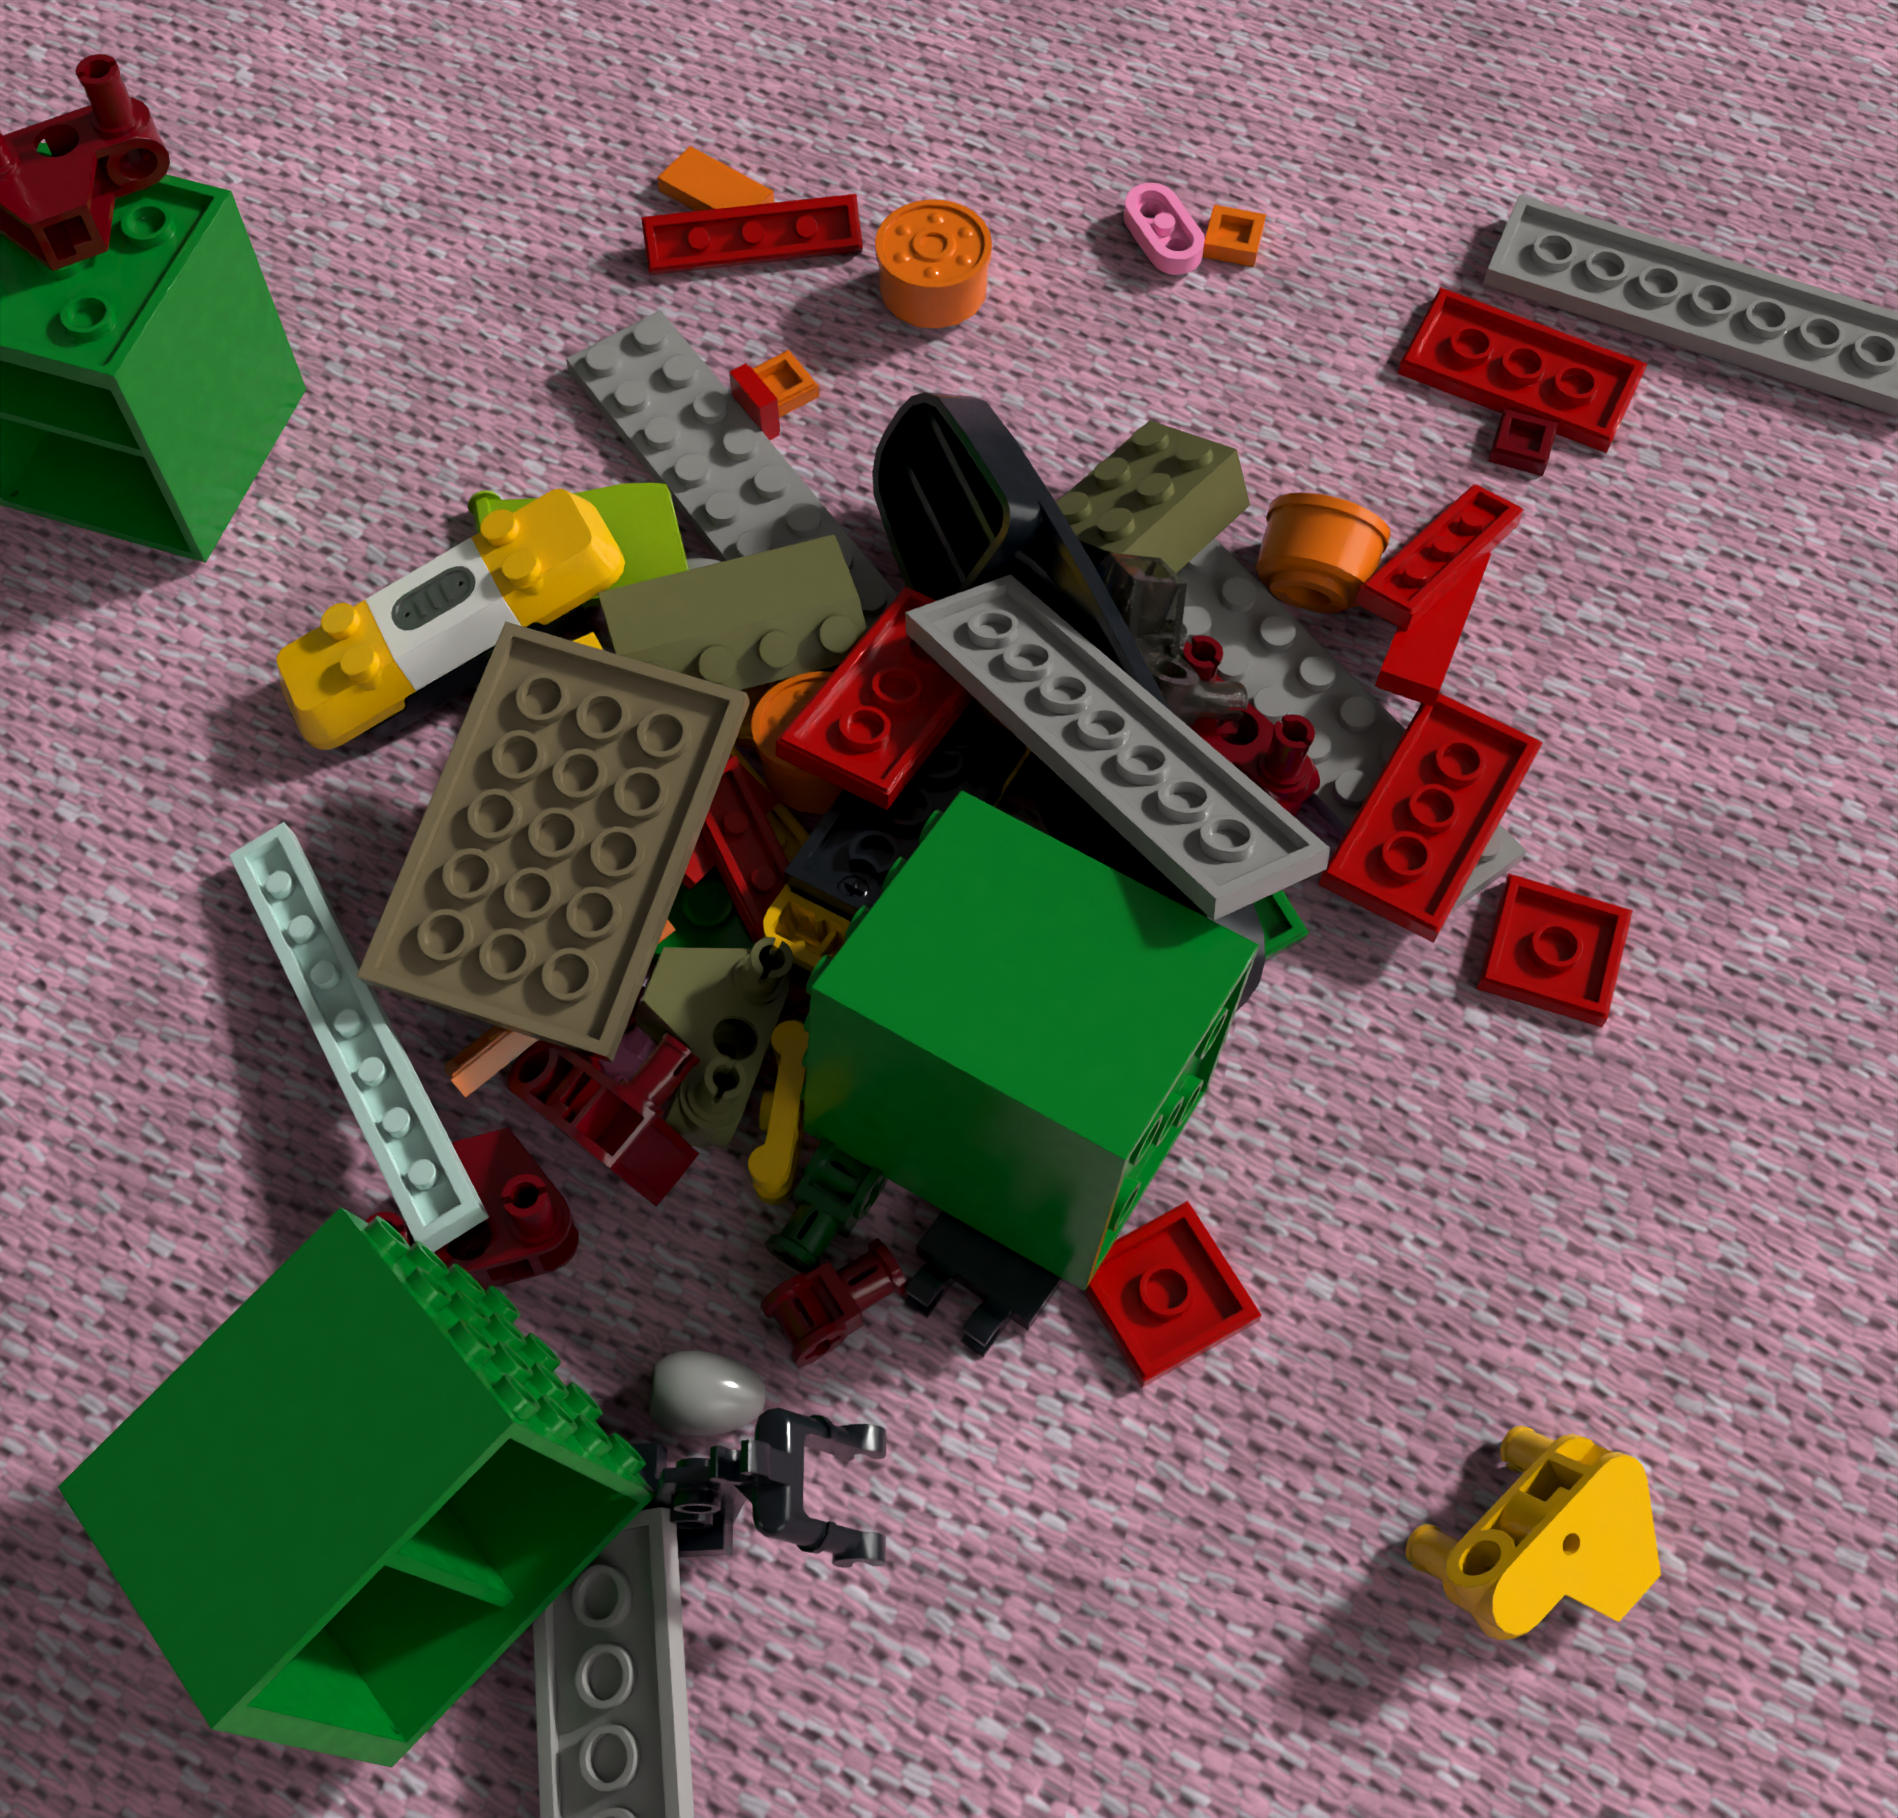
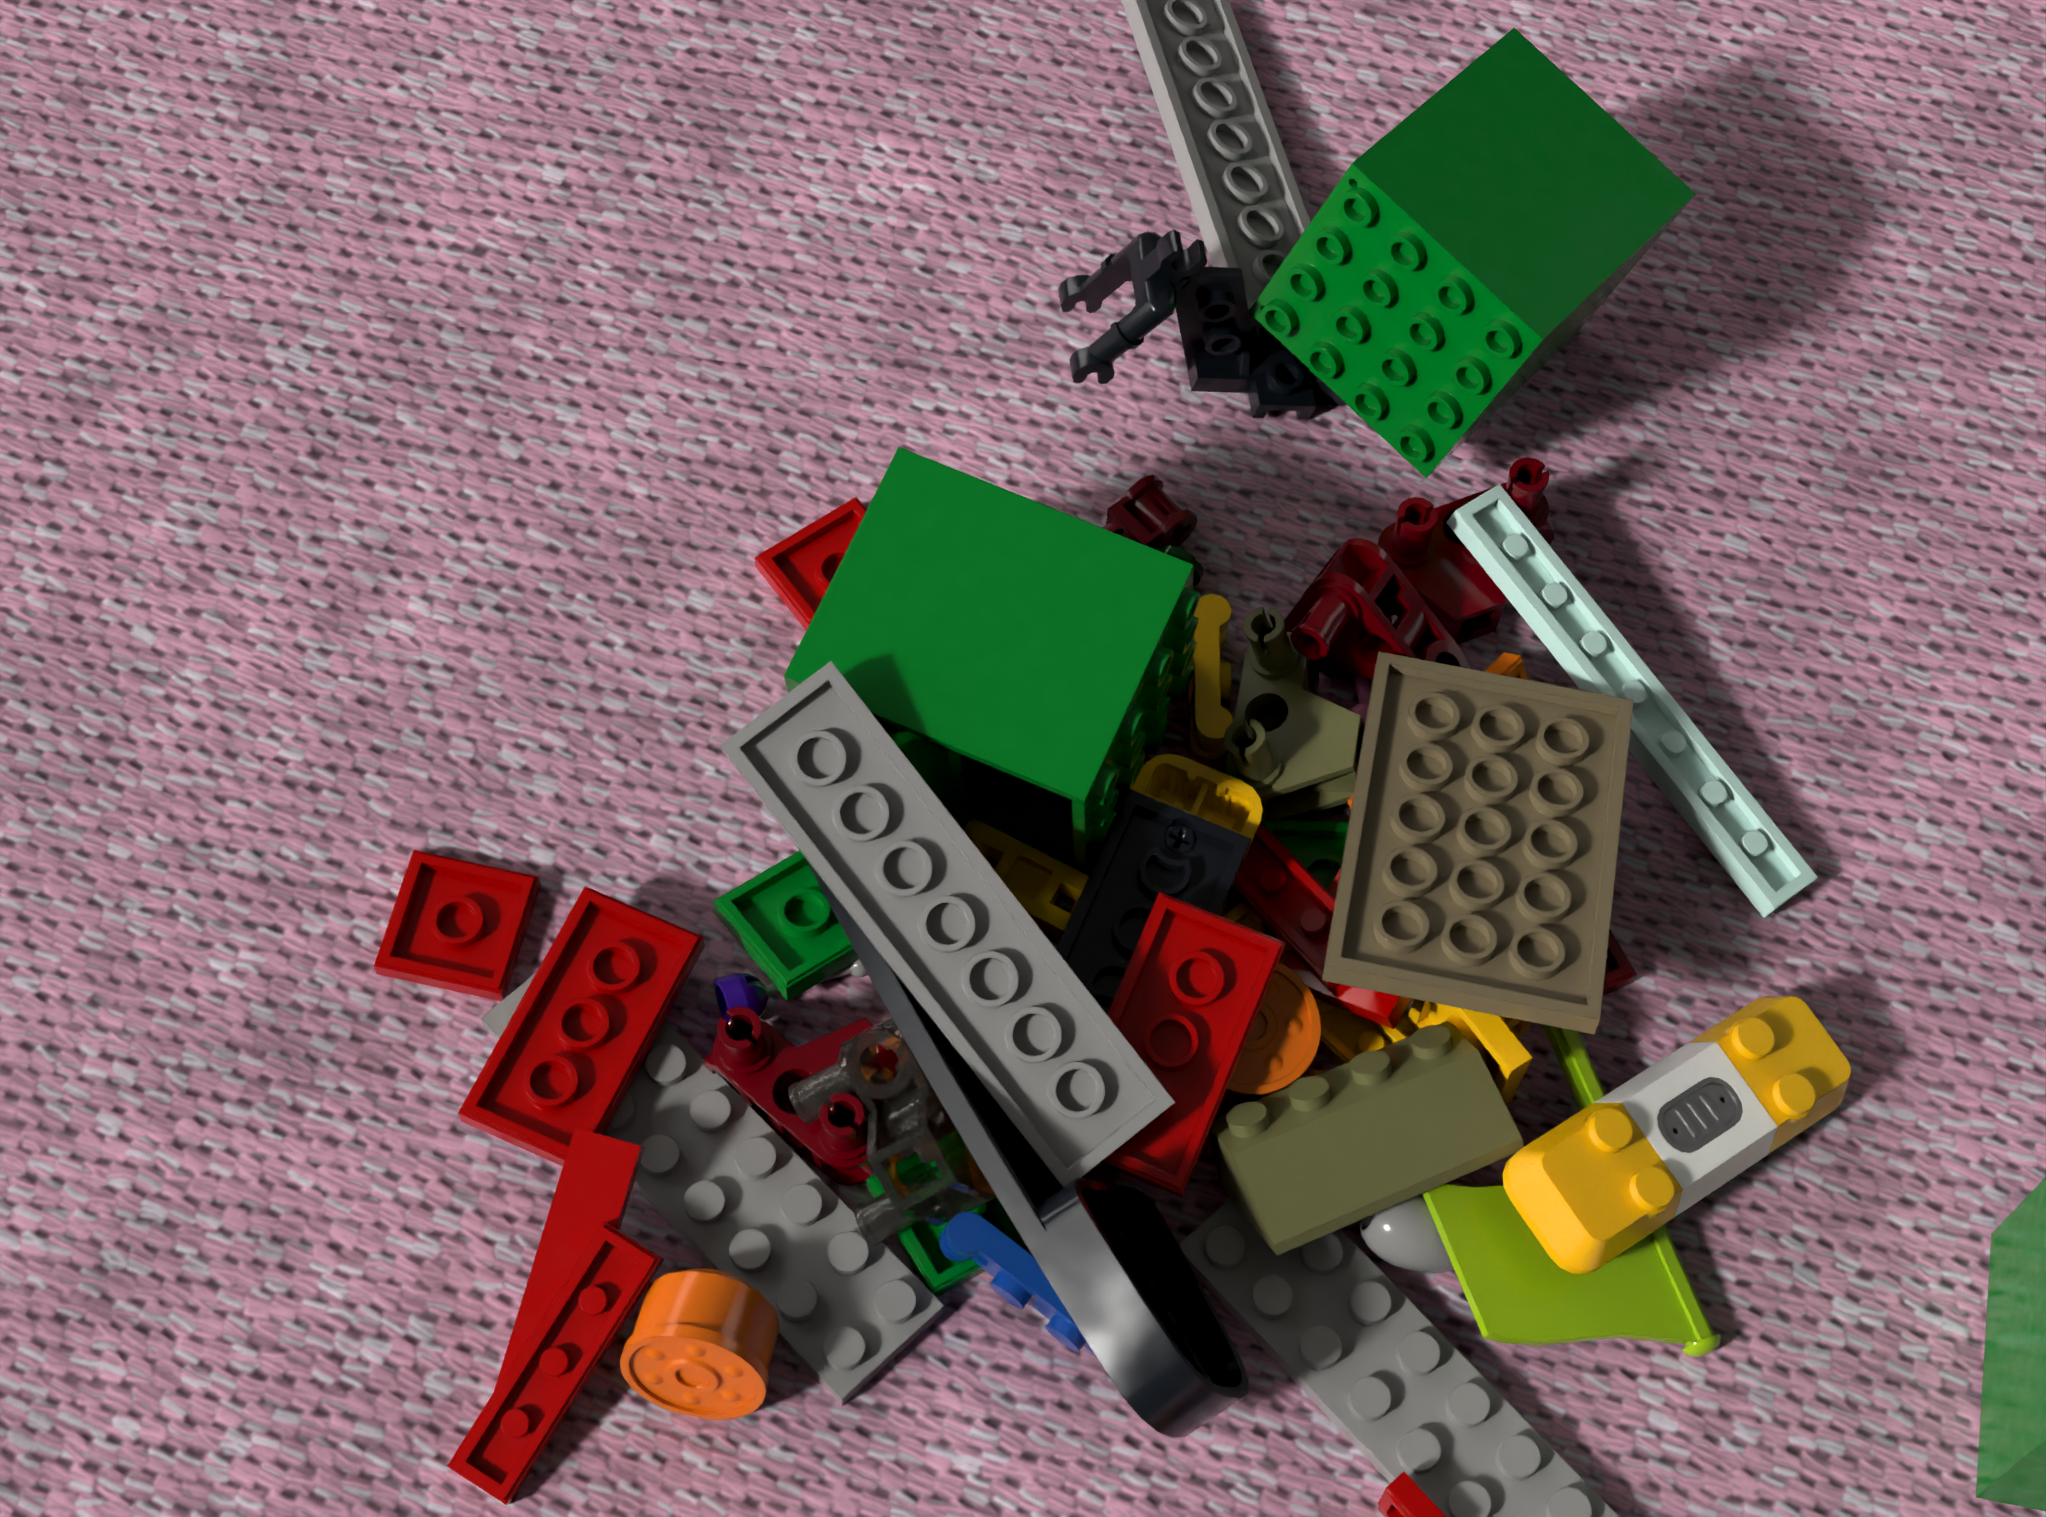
camera: 170 degrees right, 0 degrees up
(704, 1394) = (1230, 447): light grey animal -> none
(1157, 497) = (917, 1370): olive brick -> none
(1565, 1527) = (491, 377): yellow piece -> none

